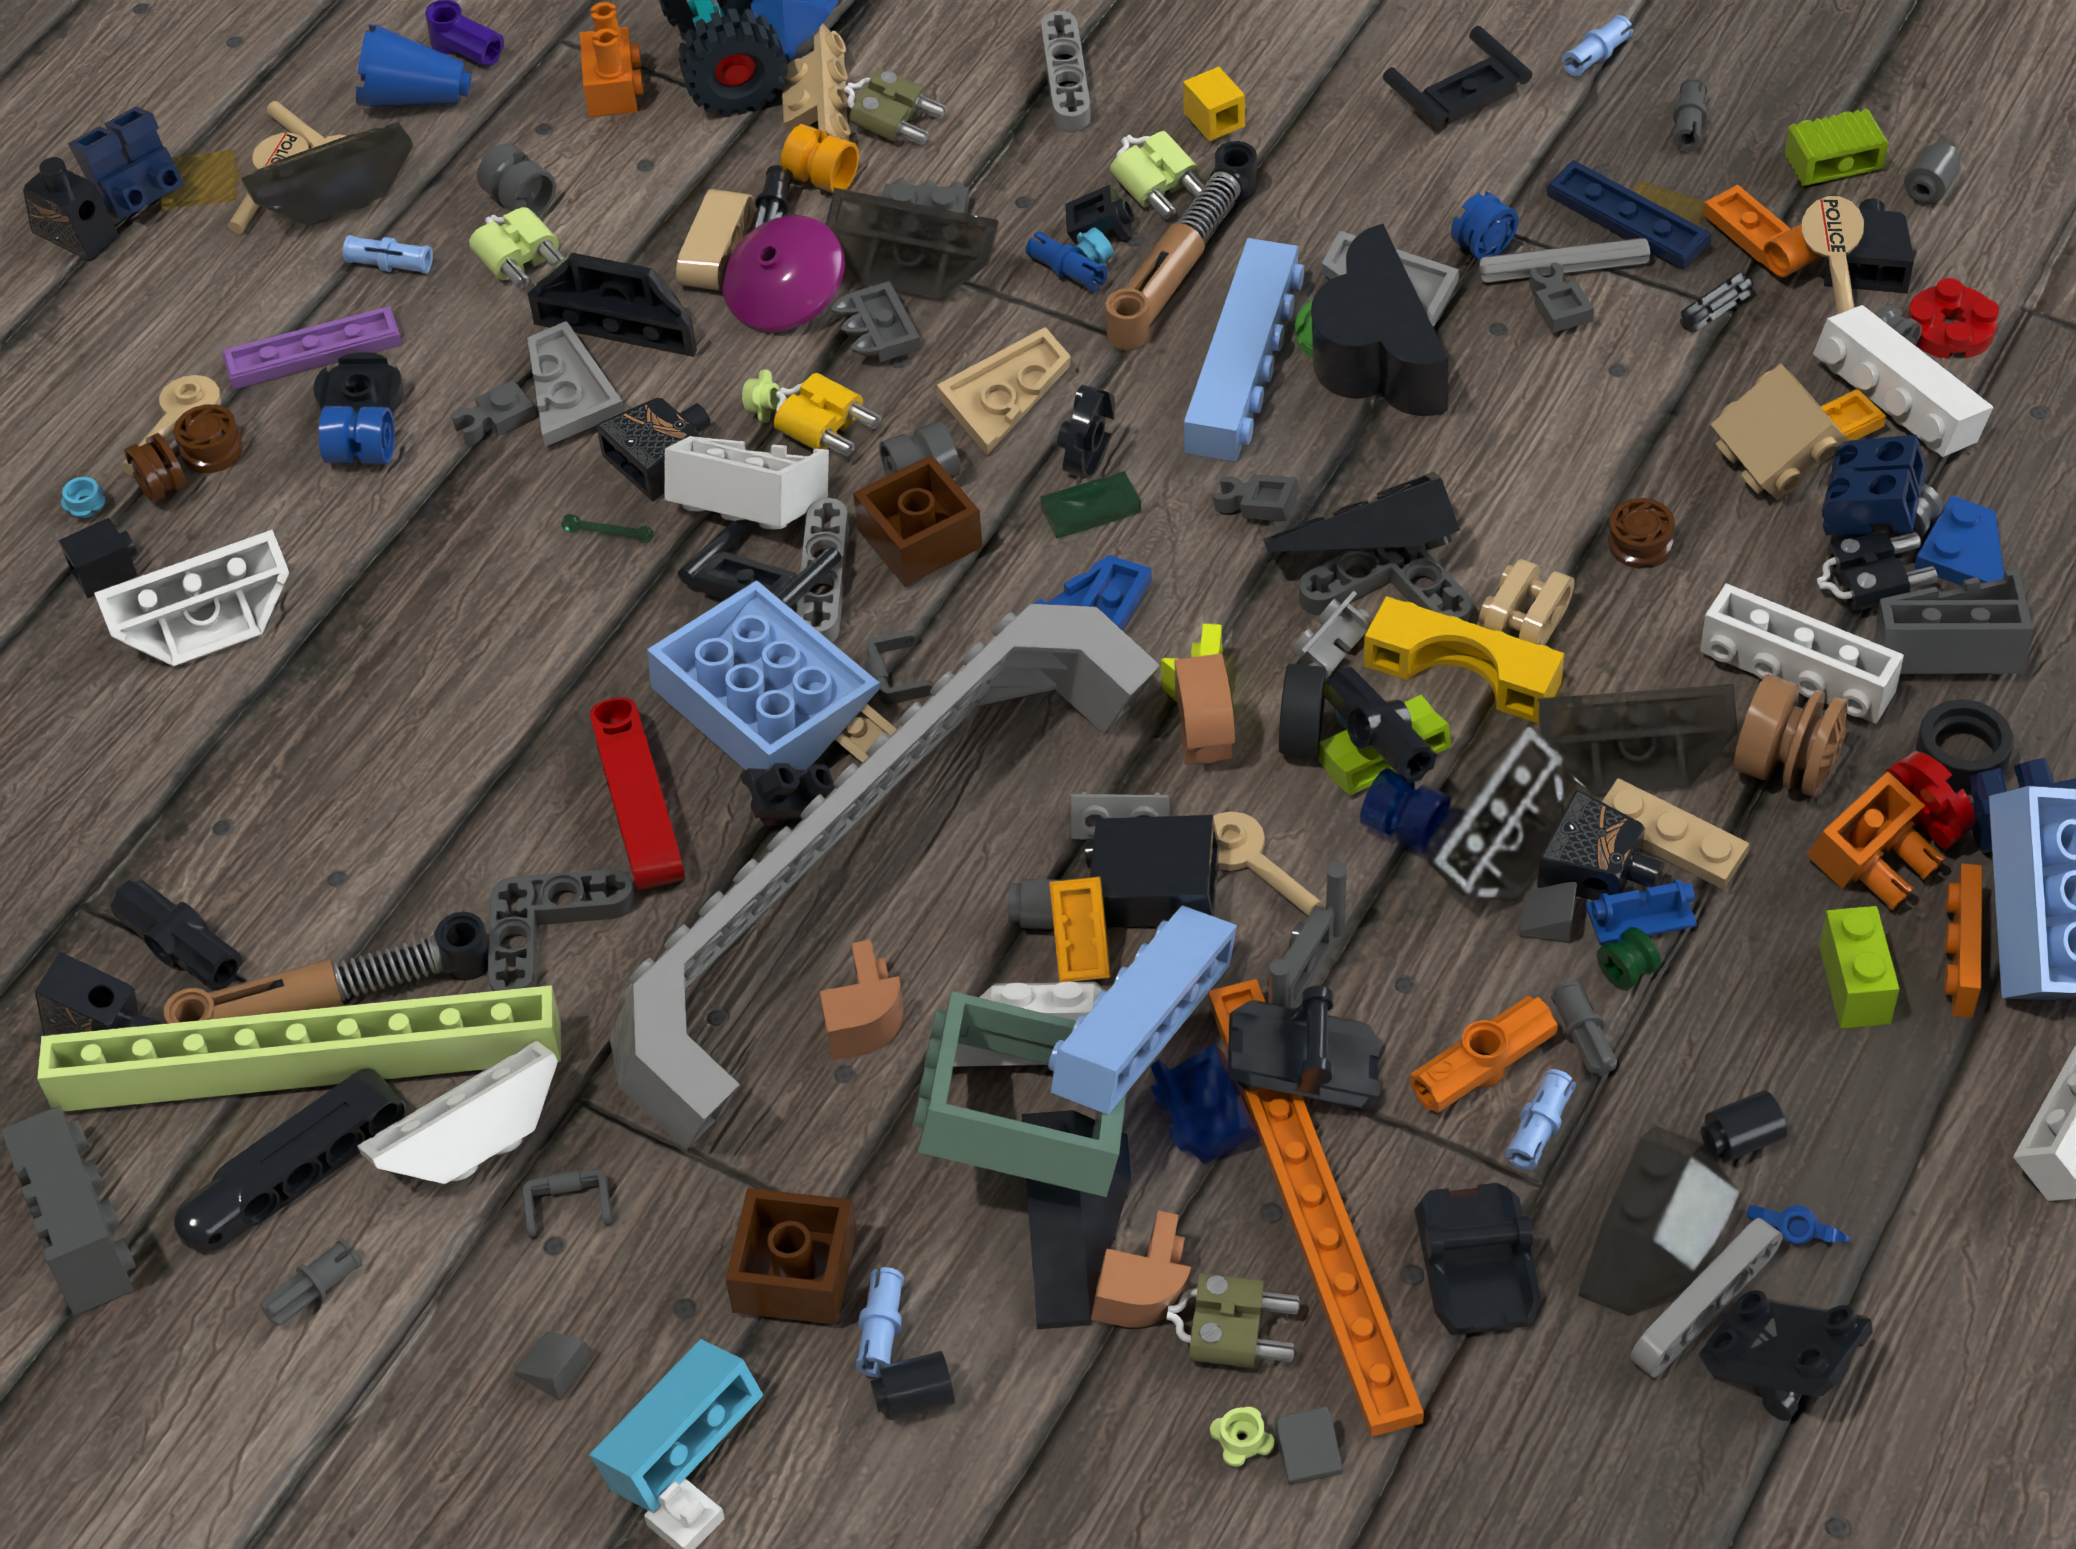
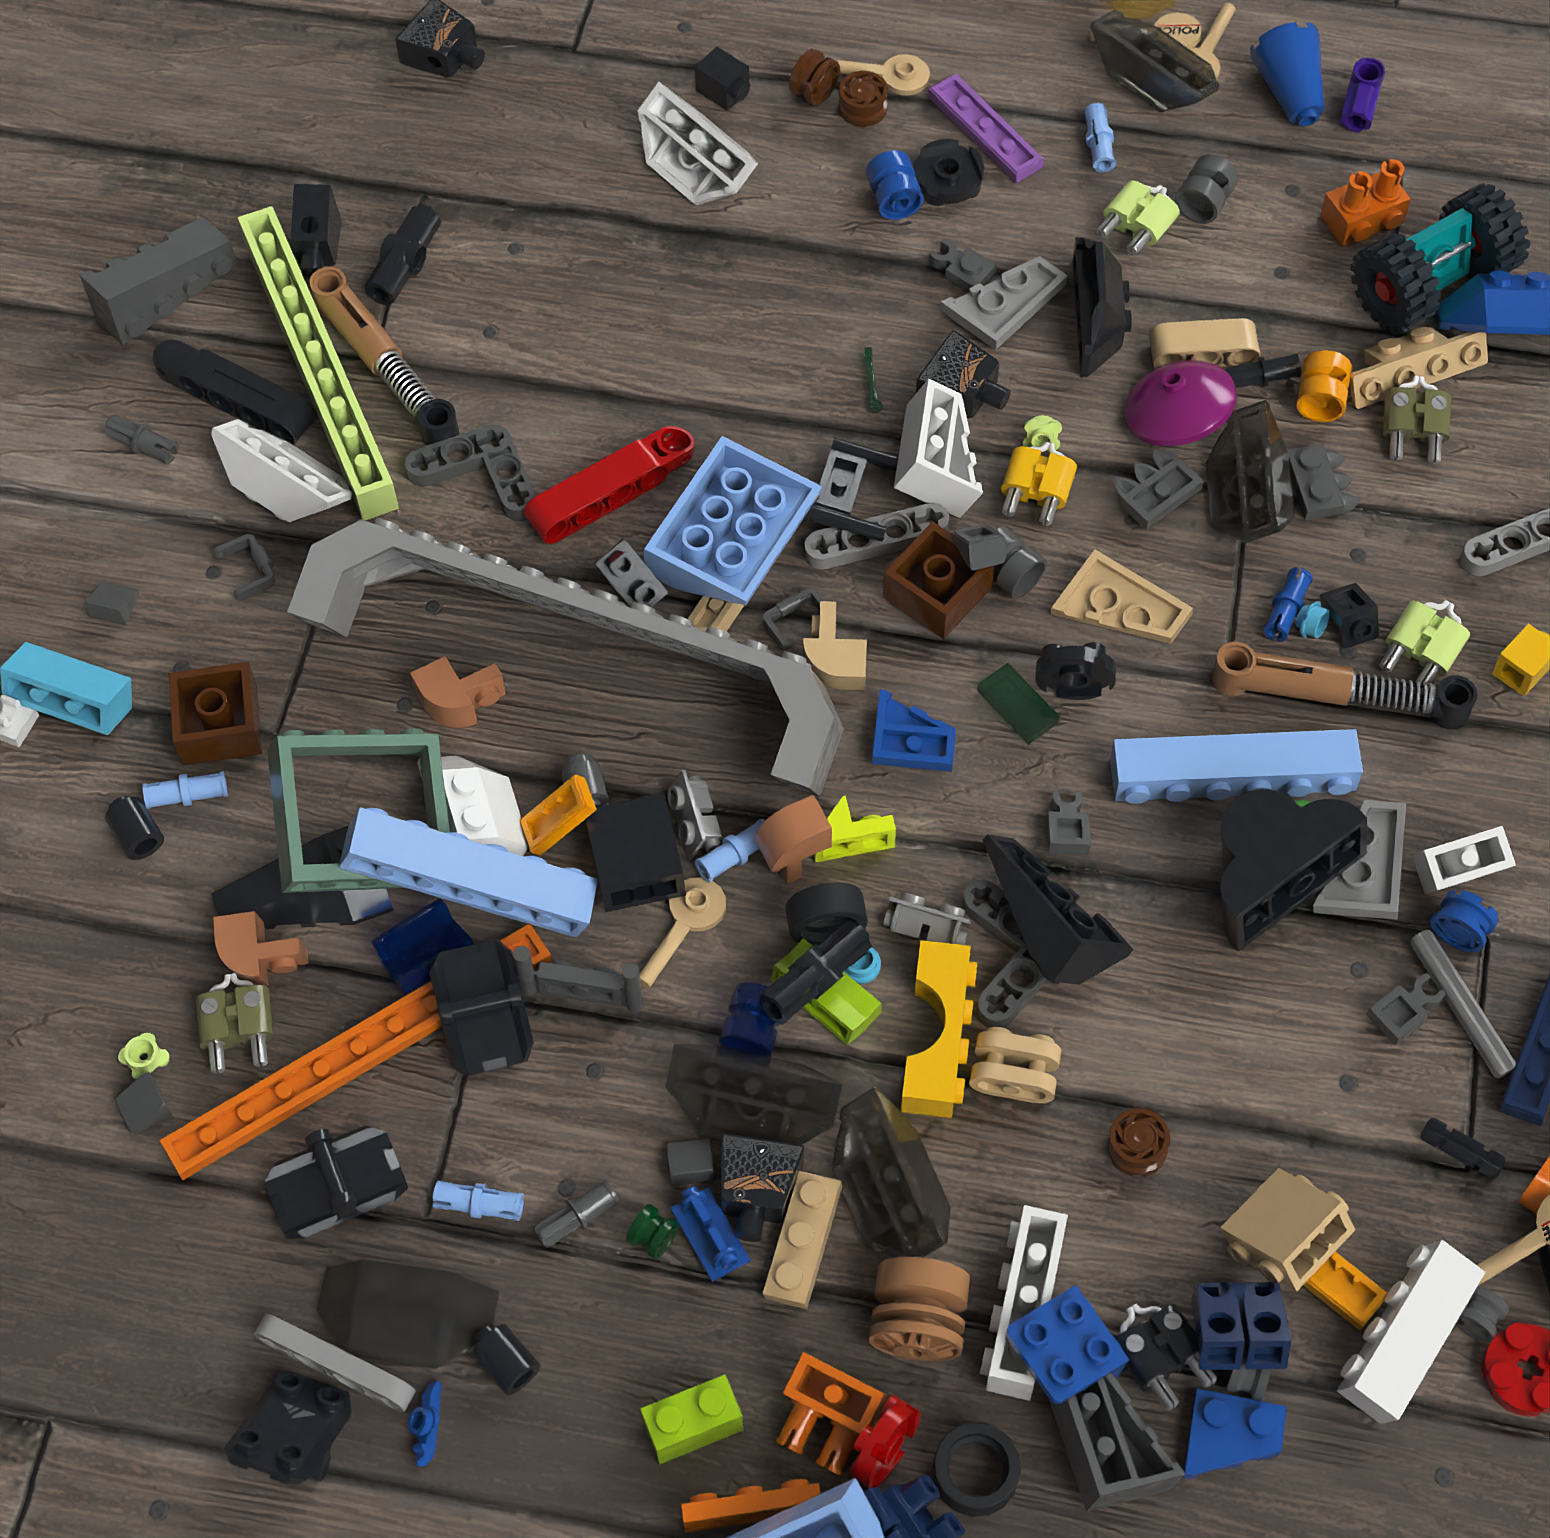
camera: 70 degrees right, 10 degrees up
(82, 497) = (780, 48): medium azure plate -> none
(907, 456) = (980, 546): none -> dark grey slope
(953, 635) = (835, 661): none -> tan brick
(1179, 780) = (731, 852): none -> light blue pin
(1421, 206) = (1463, 860): none -> white brick
(1463, 1069) = (545, 1156): orange piece -> none
(1868, 615) = (1066, 1346): none -> blue bracket

